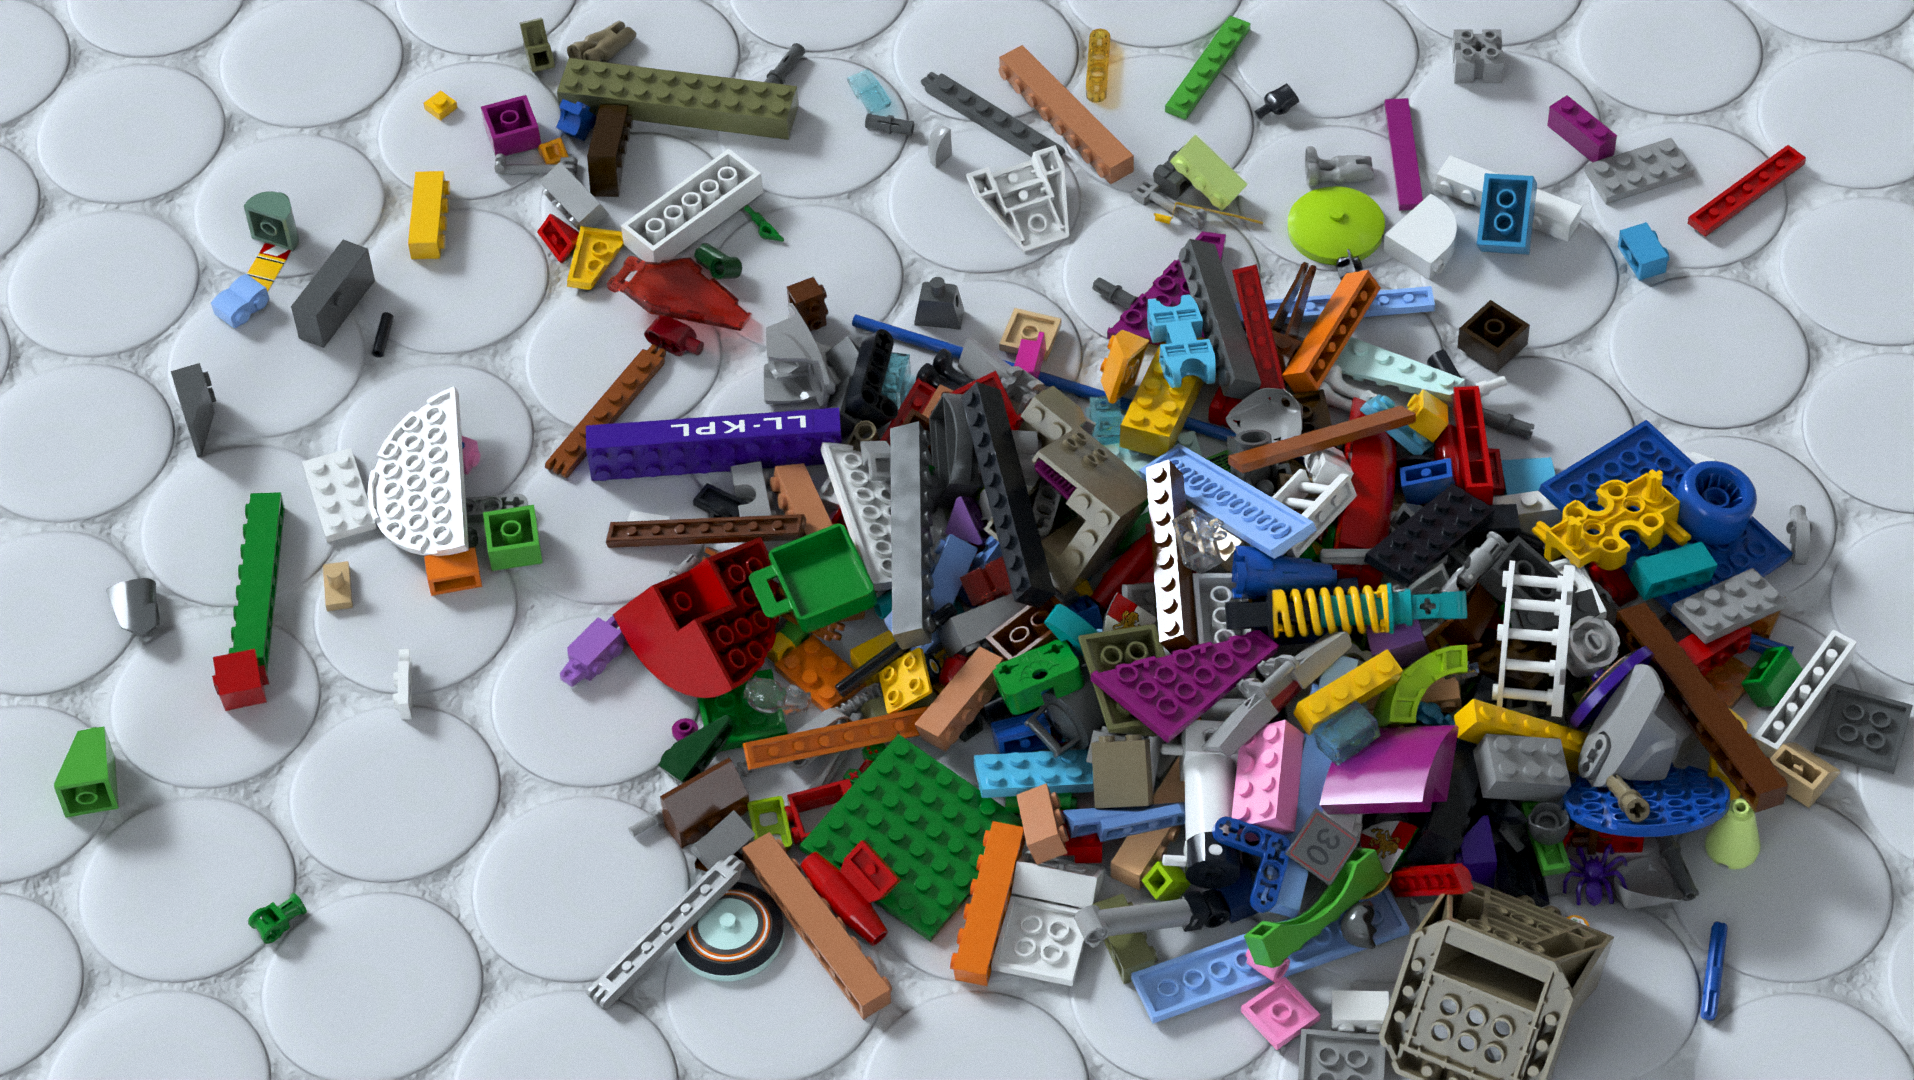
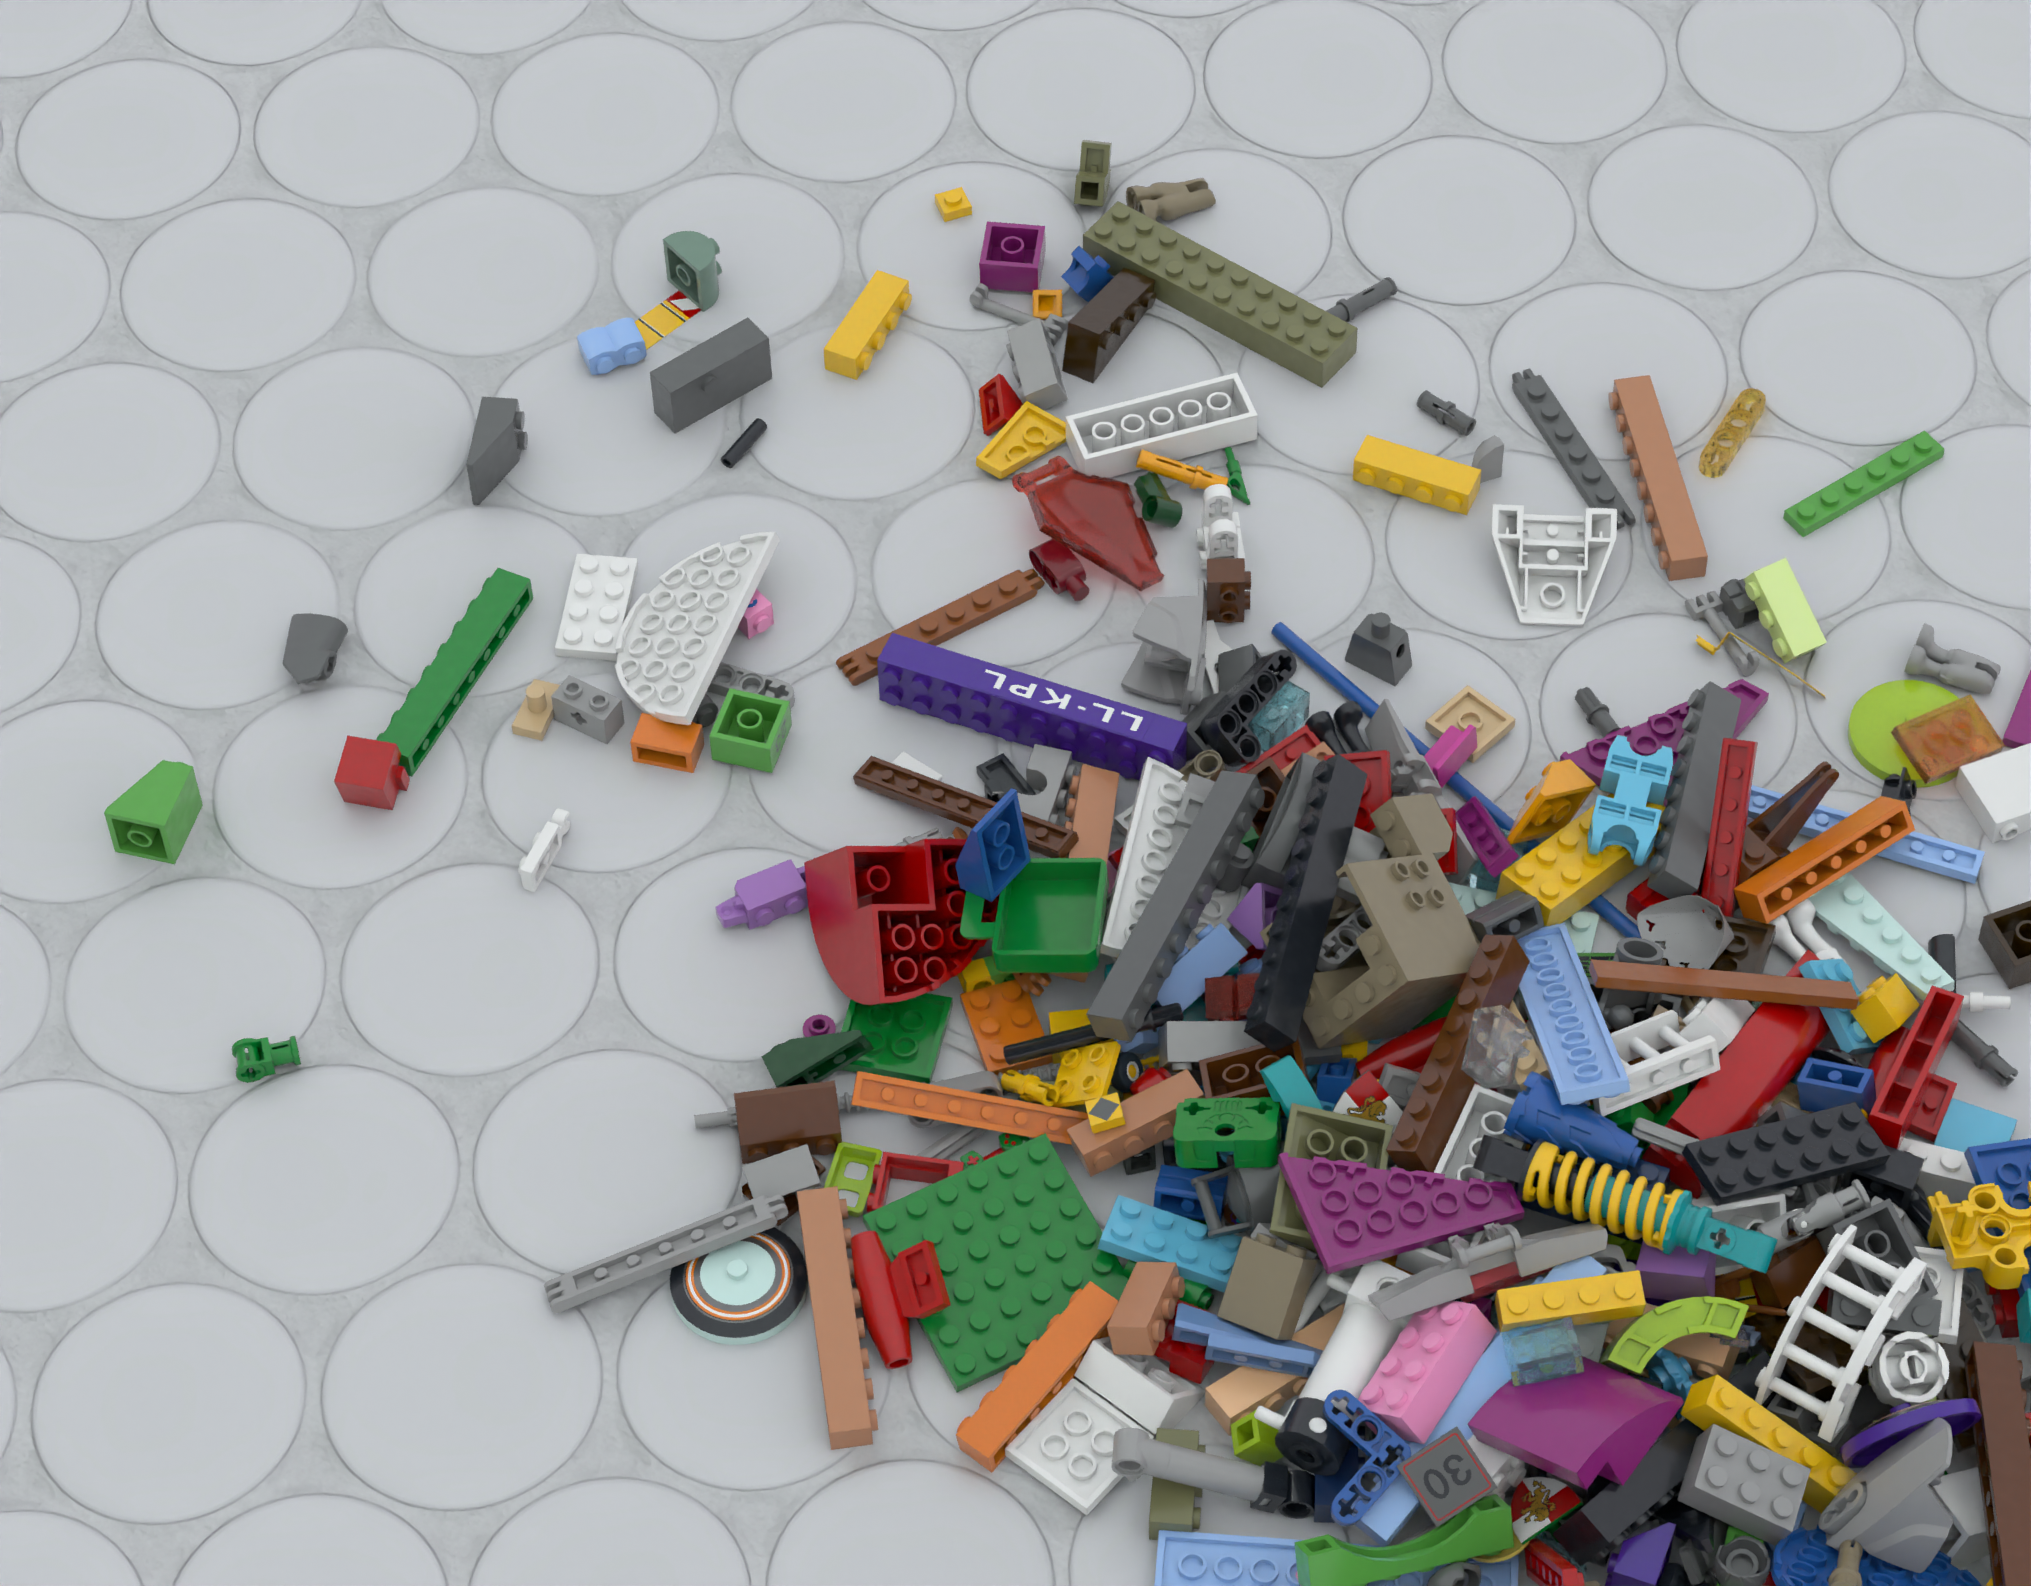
camera: 25 degrees right, 0 degrees up
(378, 570) = (587, 709): none -> light grey brick
(723, 235) = (1175, 470): none -> light orange pin
(763, 547) = (994, 850): none -> blue slope
(769, 696) = (927, 1029): clear animal -> none
(777, 266) = (1219, 527): none -> white brick
(868, 707) = (1030, 1087): none -> yellow pin
(869, 91) = (1444, 365): clear light blue slope -> none
(894, 175) = (1416, 475): none -> yellow brick
(938, 700) = (1105, 1112): none -> yellow tile
(1096, 407) = (1485, 837): none -> magenta tile
(1143, 452) = (1509, 915): none -> dark grey brick
(1278, 101) = (1923, 556): black piece -> none
(1366, 218) = (1947, 738): none -> clear orange plate

